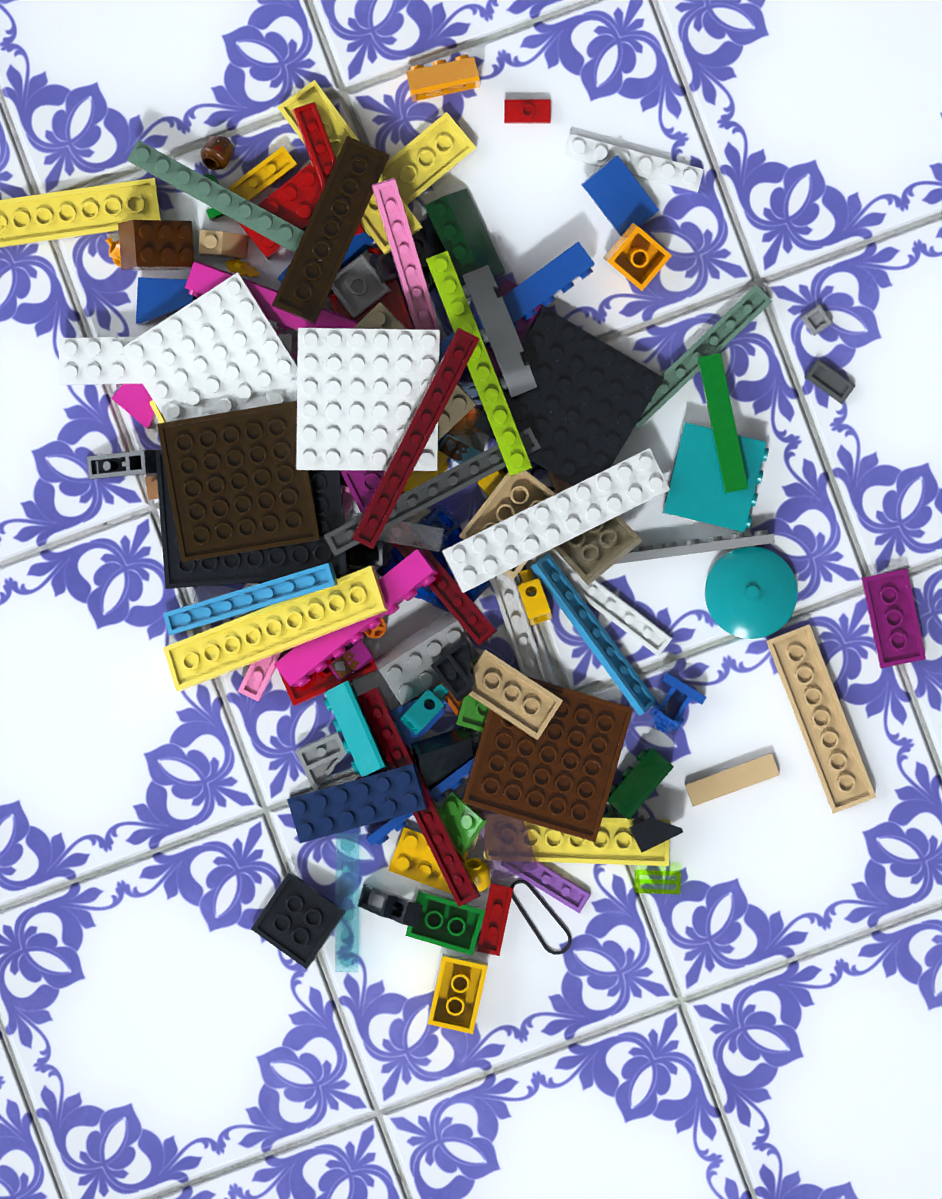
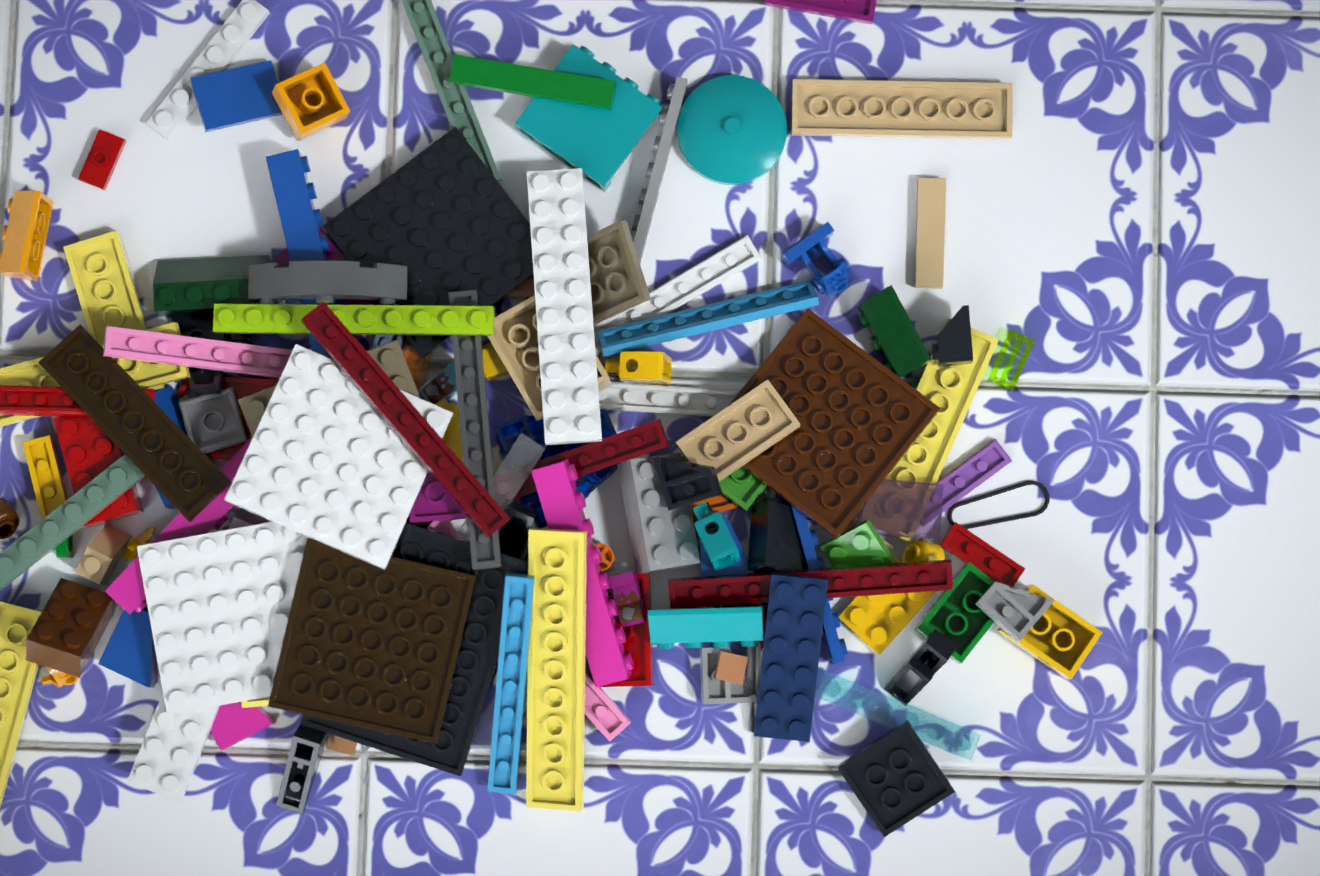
camera: 70 degrees left, 5 degrees down
(331, 760) = (730, 667): none -> nougat tile
(462, 958) = (1013, 608): none -> light grey wing

